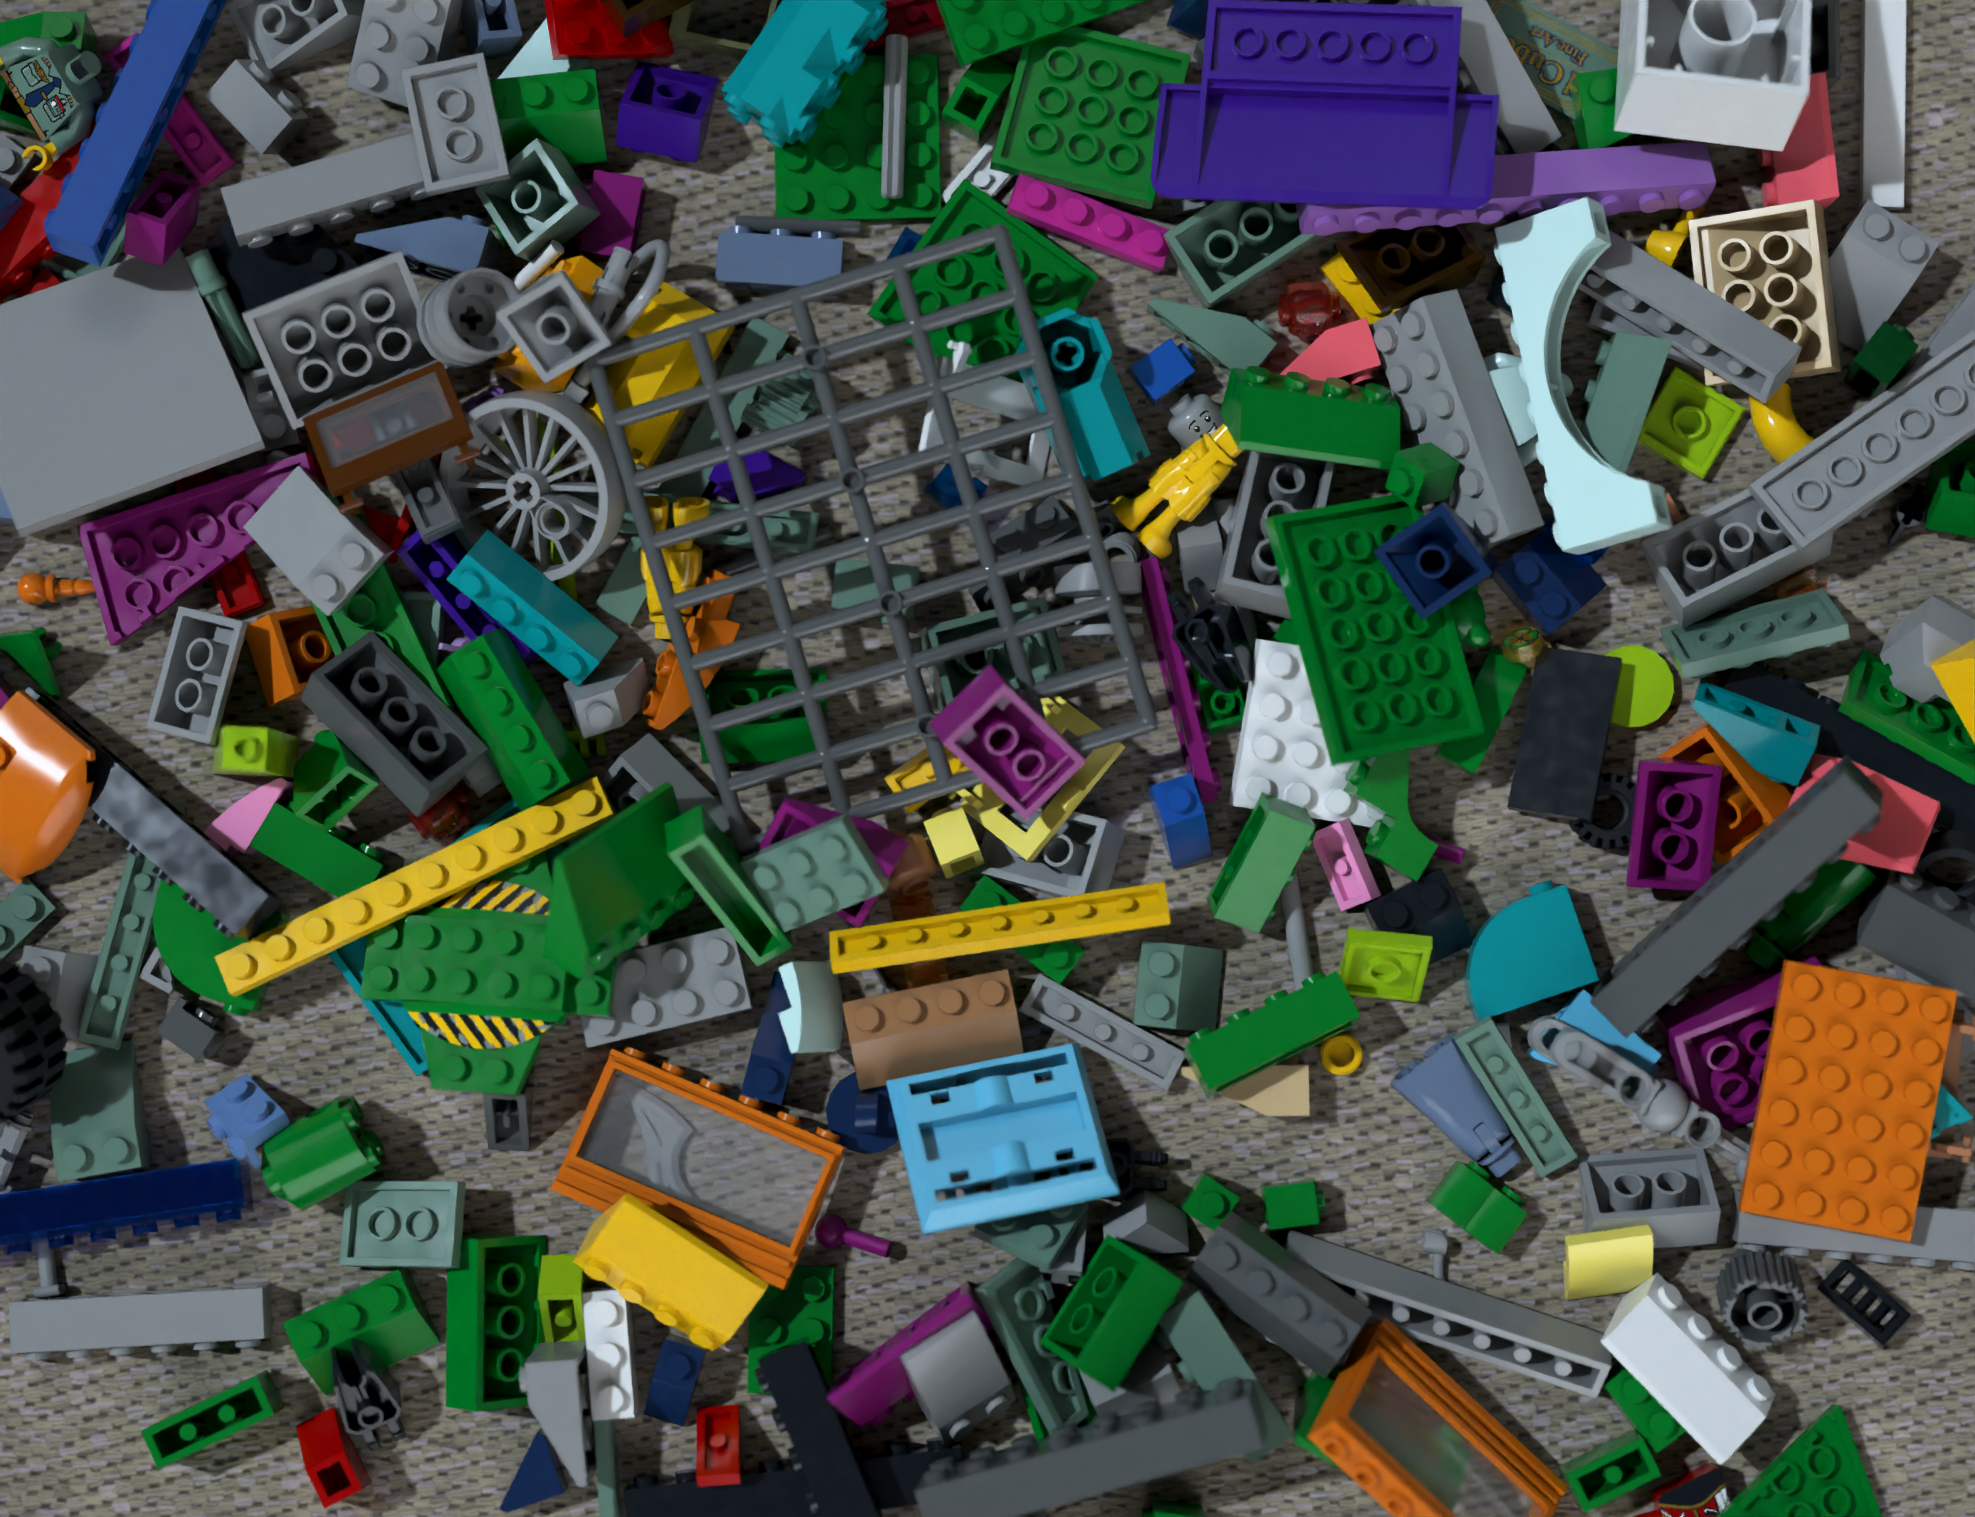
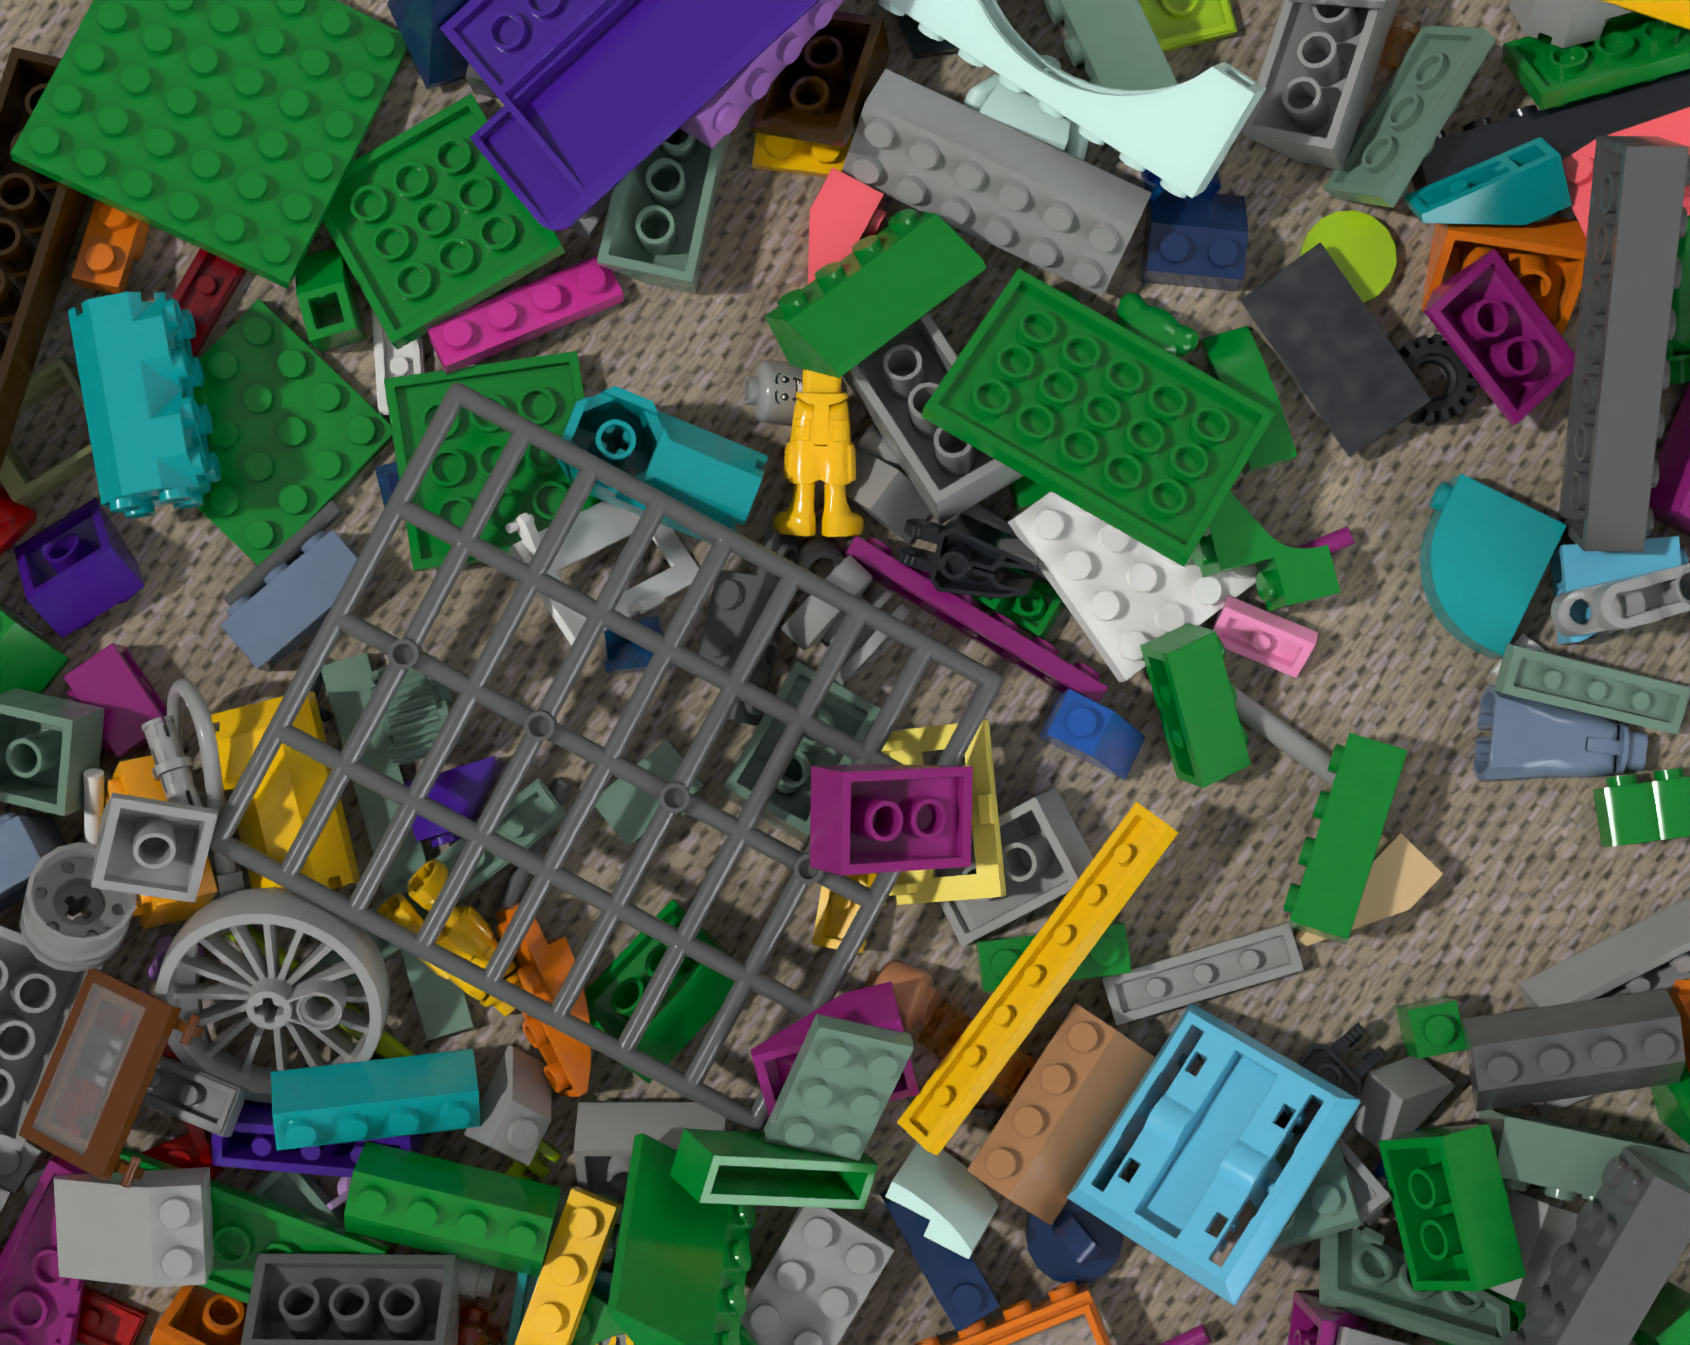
camera: 50 degrees left, 0 degrees up
(894, 116) = (273, 384): light grey axle -> none
(953, 841) = (922, 939): light yellow brick -> none
(1163, 370) = (708, 376): blue brick -> none
(1177, 986) = (1225, 876): sand green slope -> none
(1218, 336) = (724, 304): sand green slope -> none
(1292, 1204) = (1498, 960): green brick -> none
(1308, 308) = (776, 207): clear red head -> none
(1340, 1054) = (1414, 796): yellow tile -> none
(1385, 964) = (1379, 686): lime tile -> none
(1422, 475) = (1011, 250): green brick -> none
(1423, 909) = (1369, 624): black slope -> none
(1436, 559) = (1095, 309): dark blue slope -> none
(1436, 1243) = (1646, 874): light grey hand -> none
(1522, 644) = (1226, 311): clear yellow tile -> none

